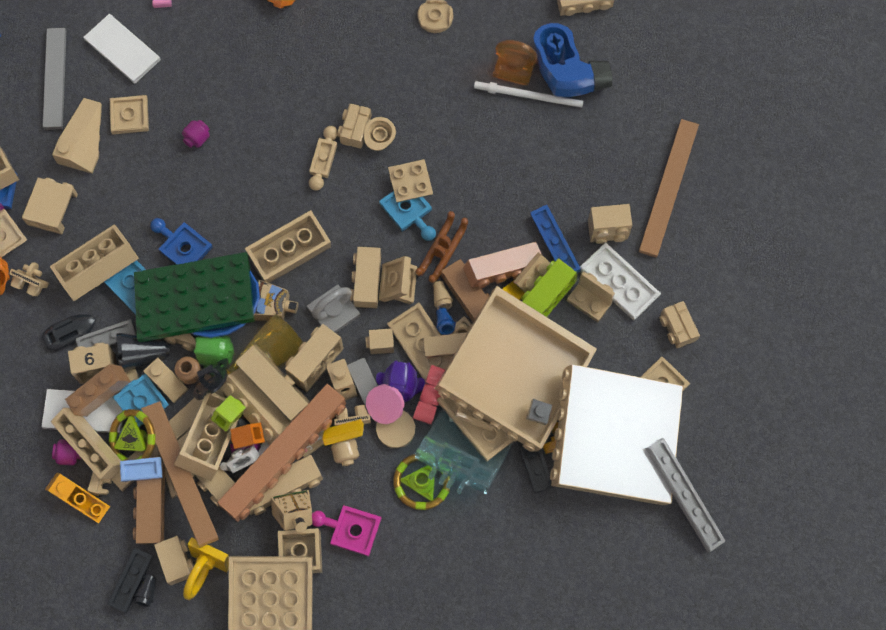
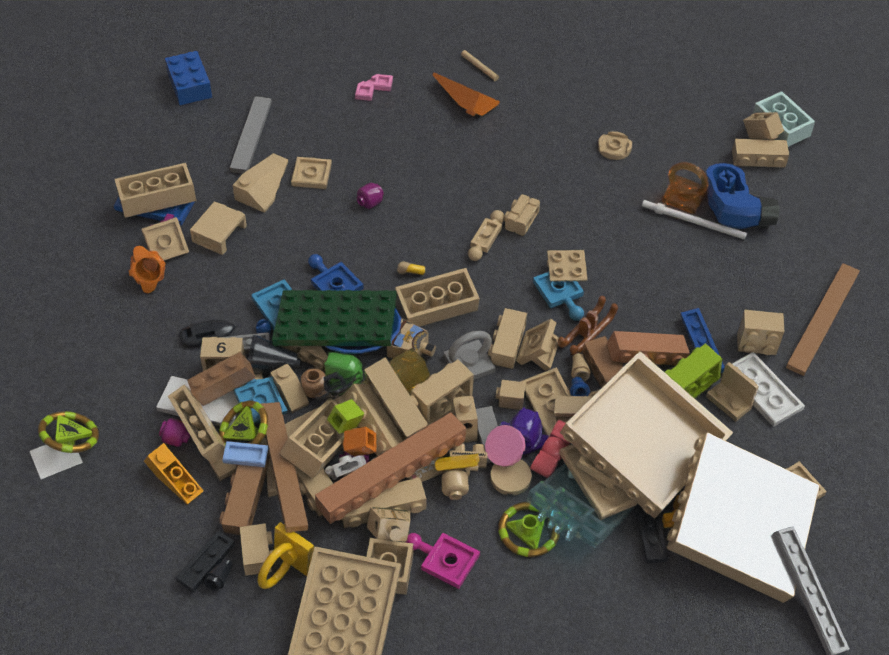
camera: 10 degrees right, 20 degrees down
(20, 277) = (184, 280): tan hips -> none
(94, 262) = (247, 276): tan brick -> none
(96, 484) = (196, 465): tan tile -> none
(122, 48) = (318, 123): white tile -> none
(126, 315) = (263, 326): none -> blue hinge
(254, 214) = (404, 267): none -> arm
(379, 133) = (544, 222): tan piece -> none
(531, 272) = (672, 358): tan plate -> none
(539, 411) = (665, 474): dark grey plate -> none
(679, 324) = (821, 436): tan brick -> none

